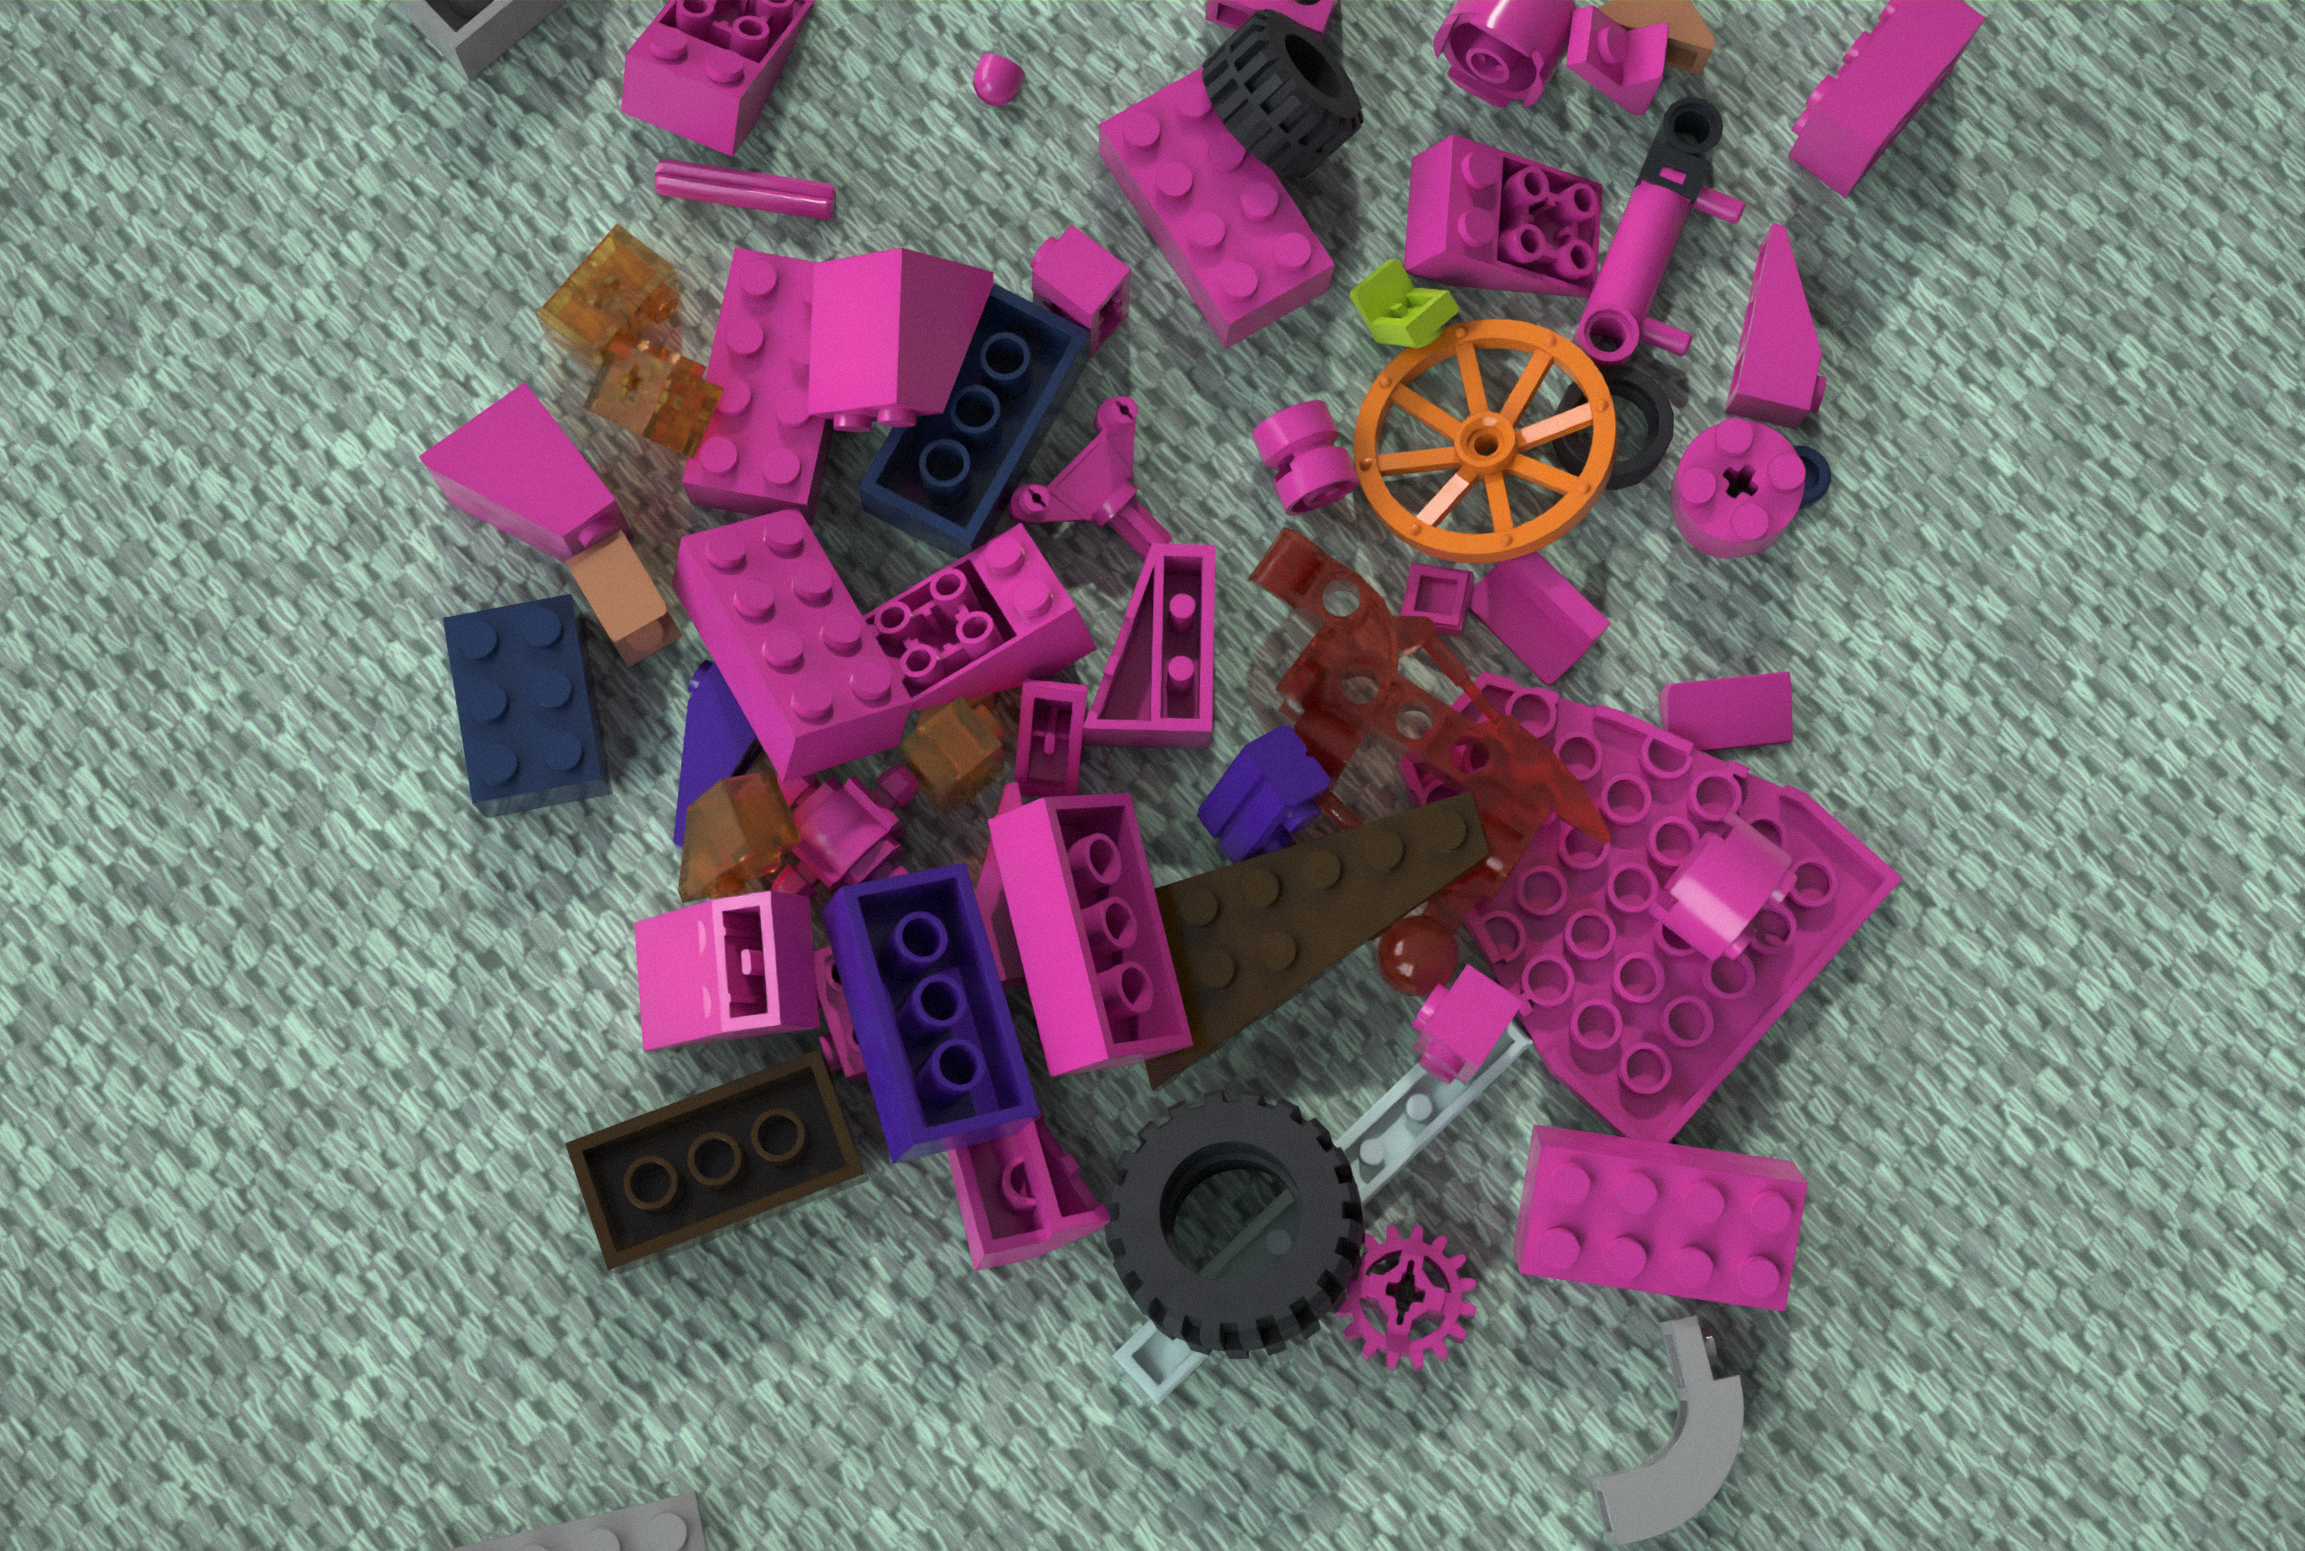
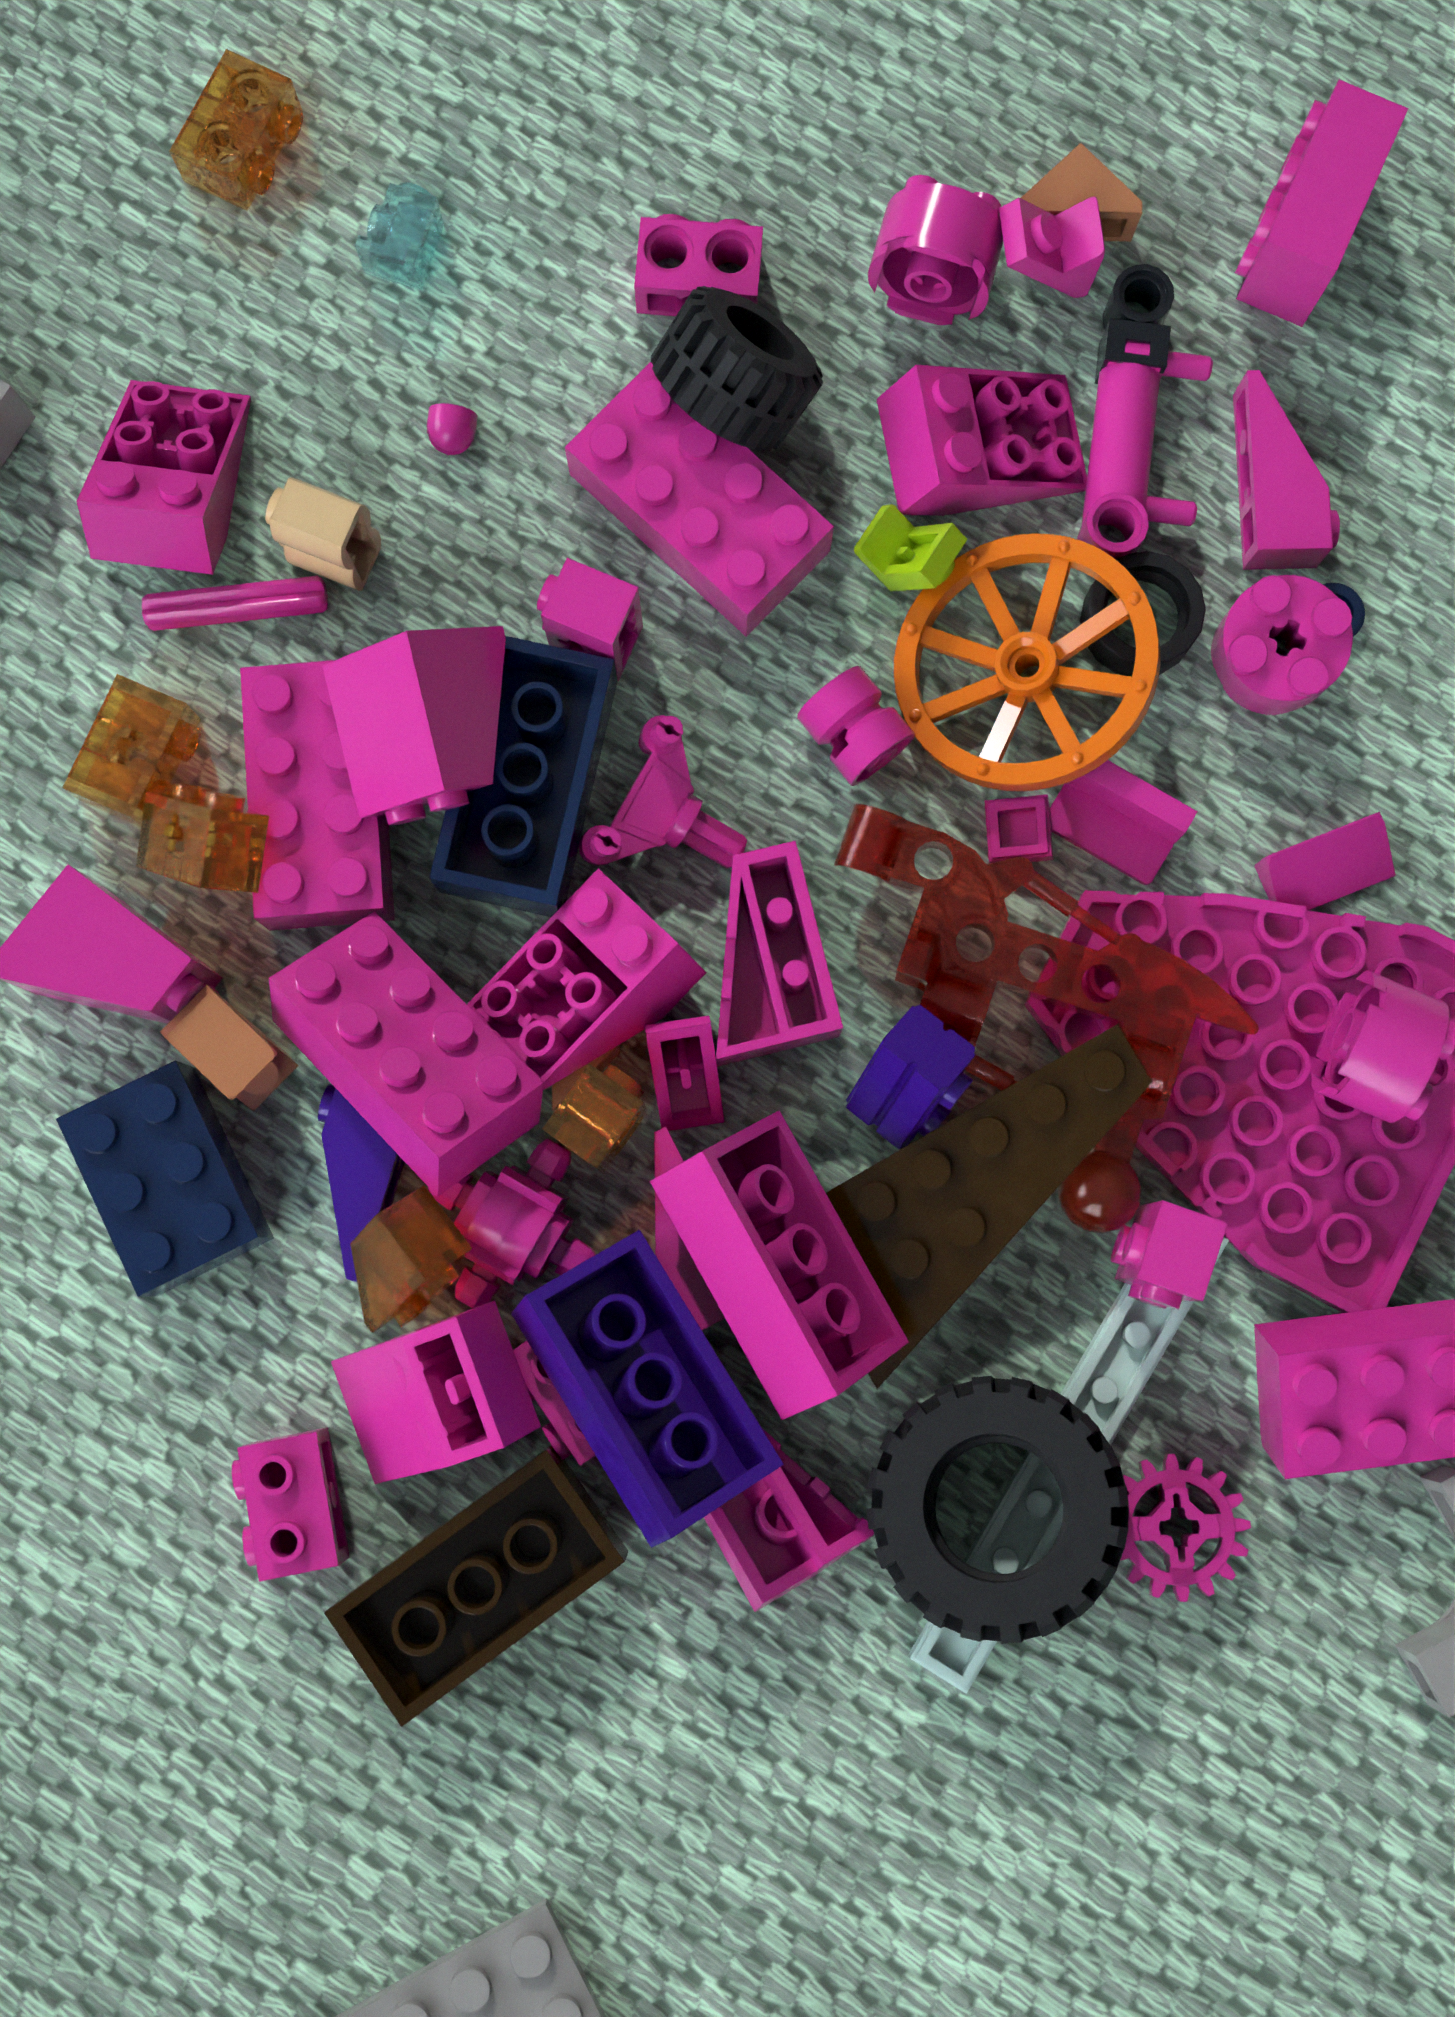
camera: 10 degrees left, 5 degrees up
(559, 1043) = (290, 1505): none -> dark pink brick
(849, 144) = (324, 532): none -> tan brick

